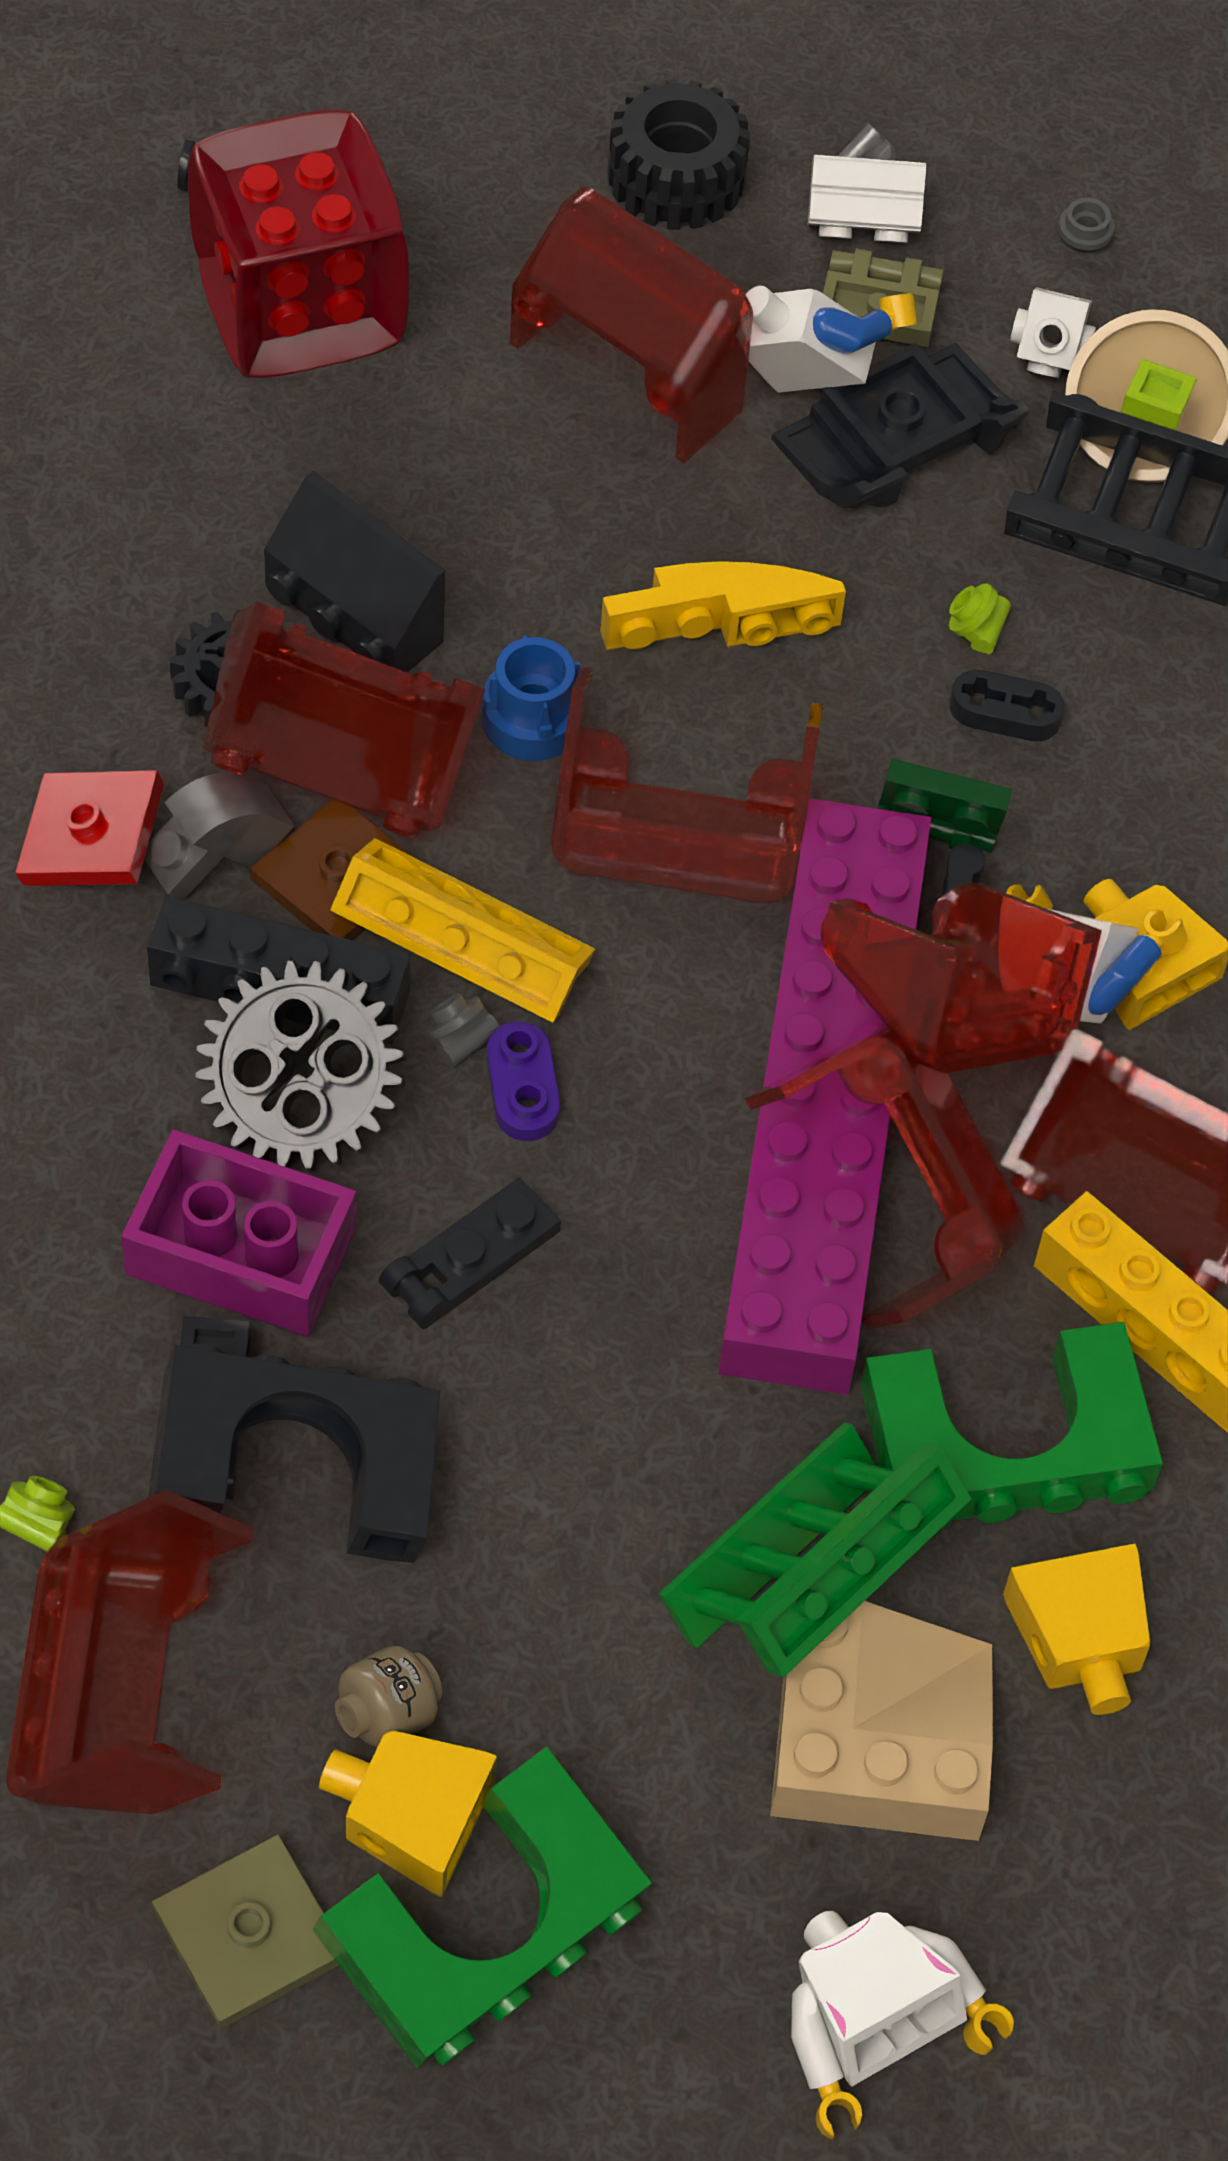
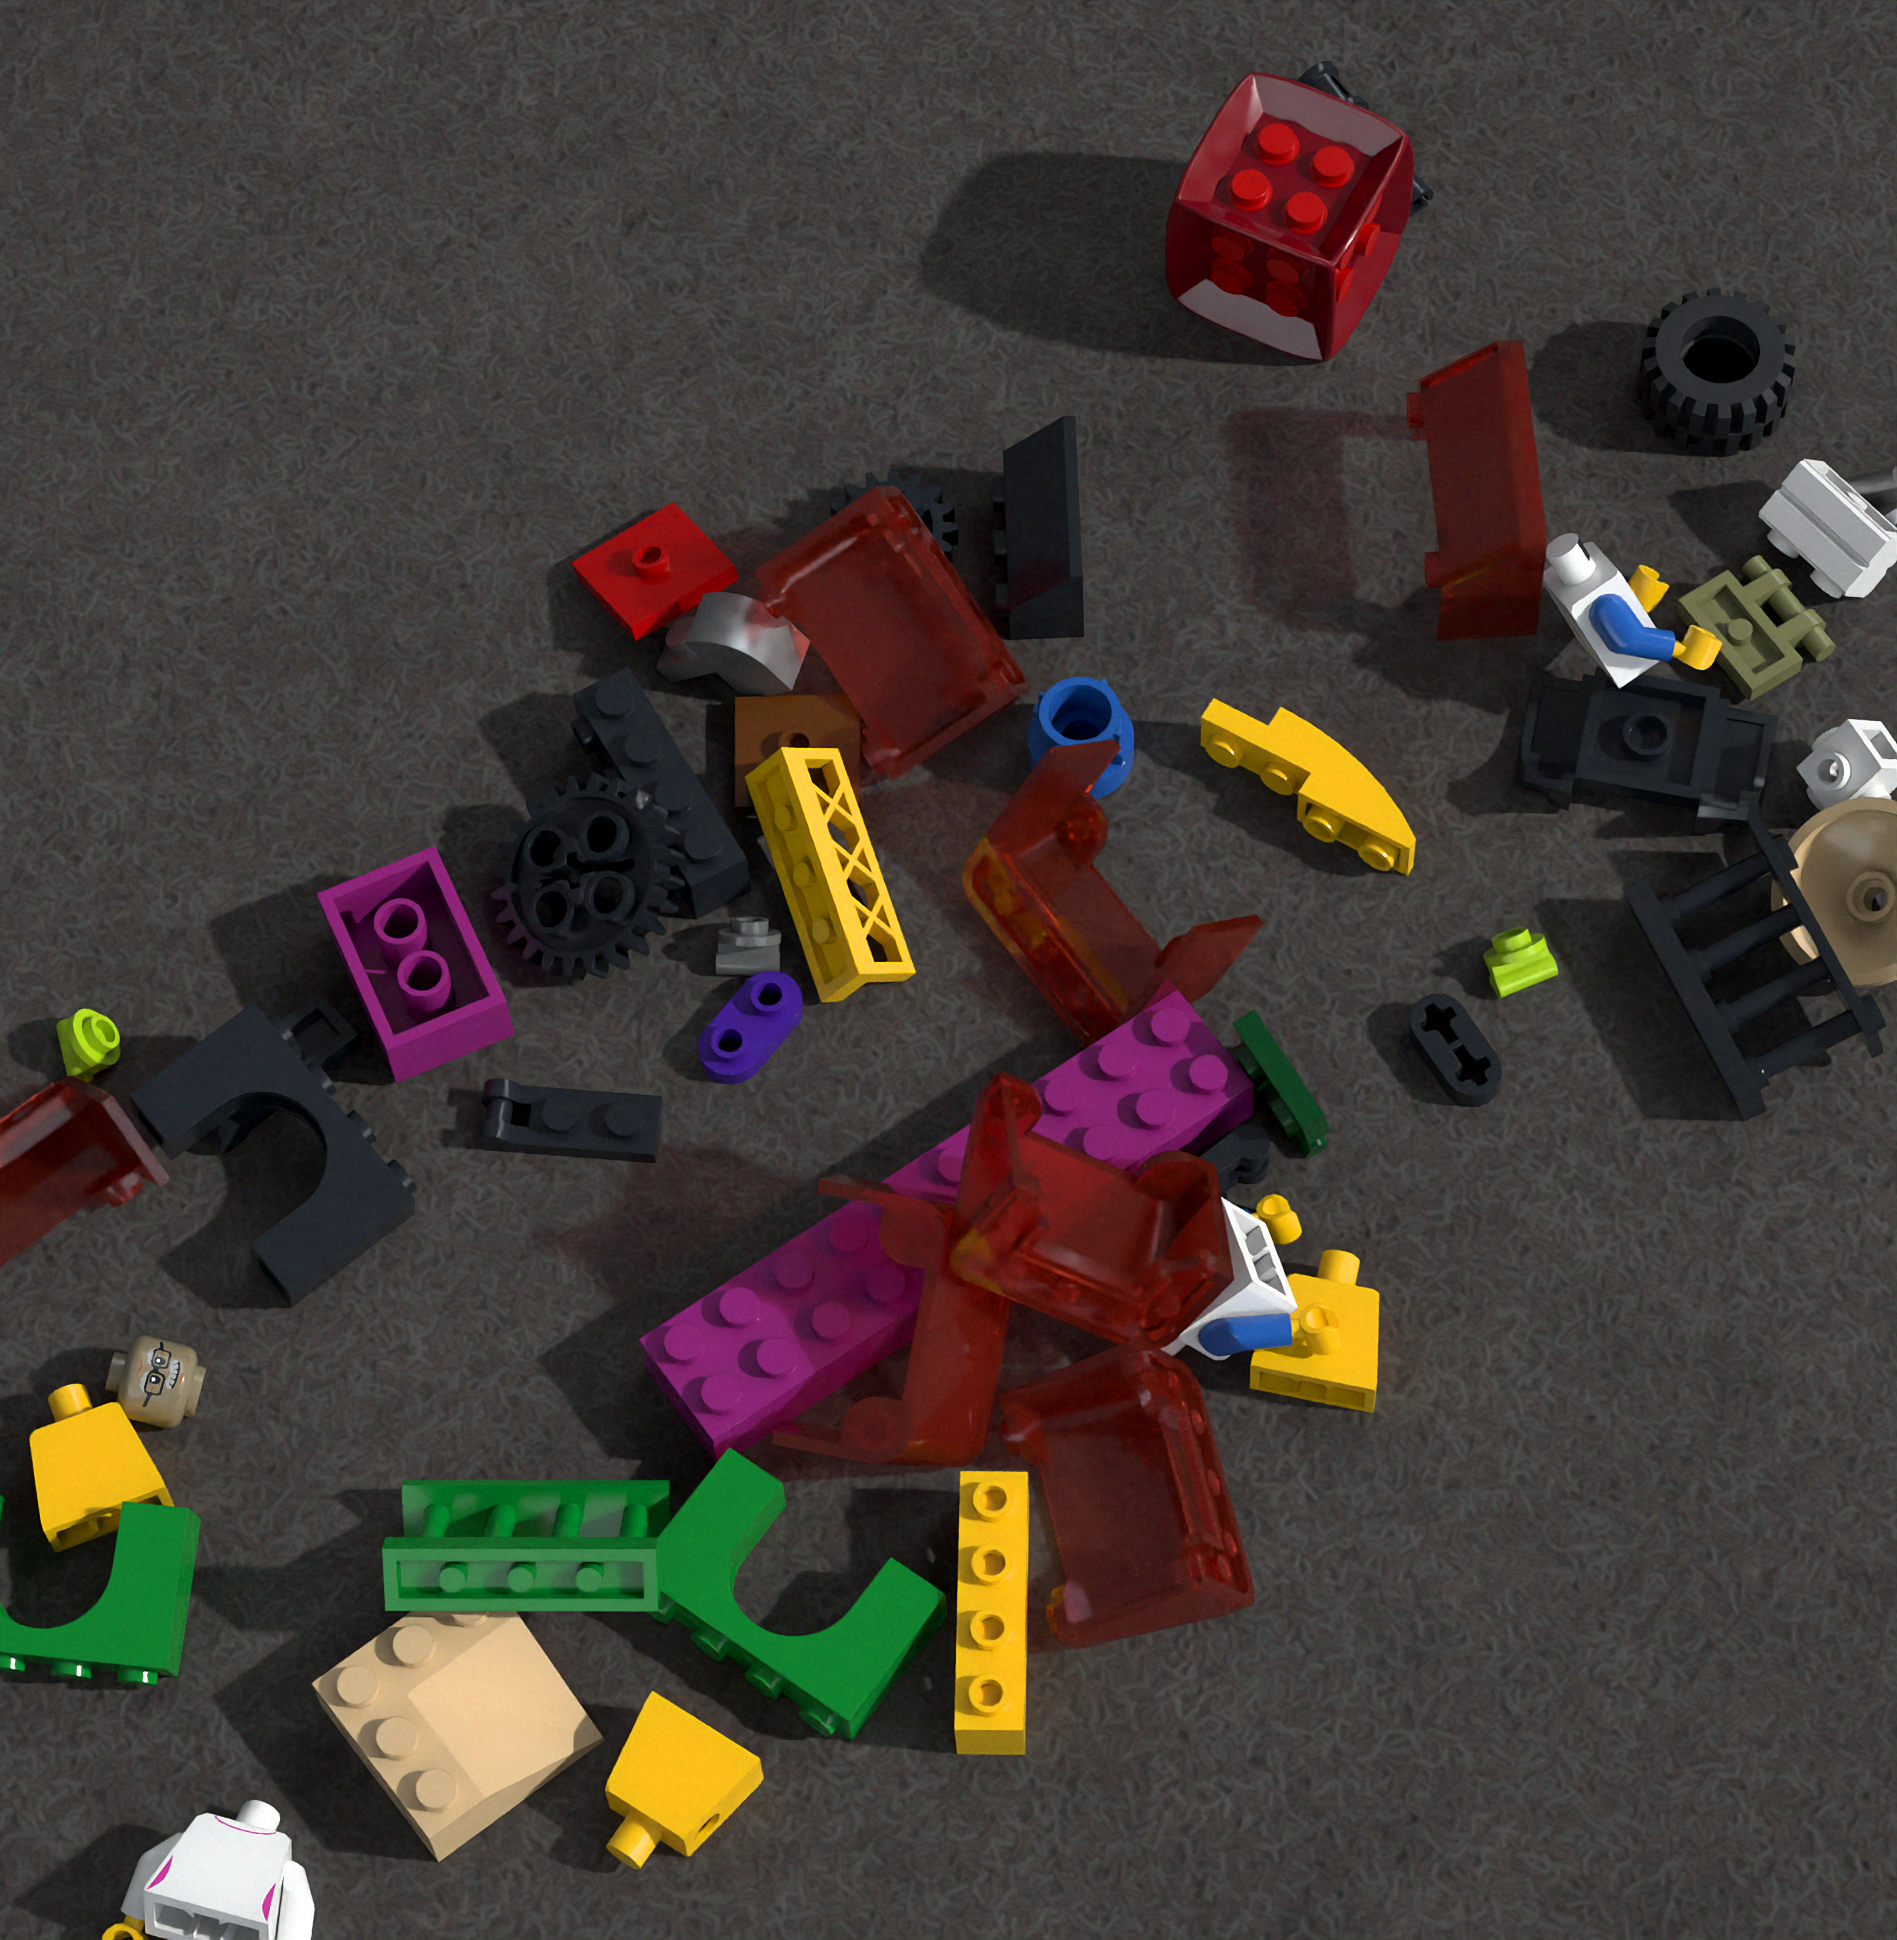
camera: 55 degrees right, 5 degrees up
(1158, 394) = (1843, 893): lime tile -> none

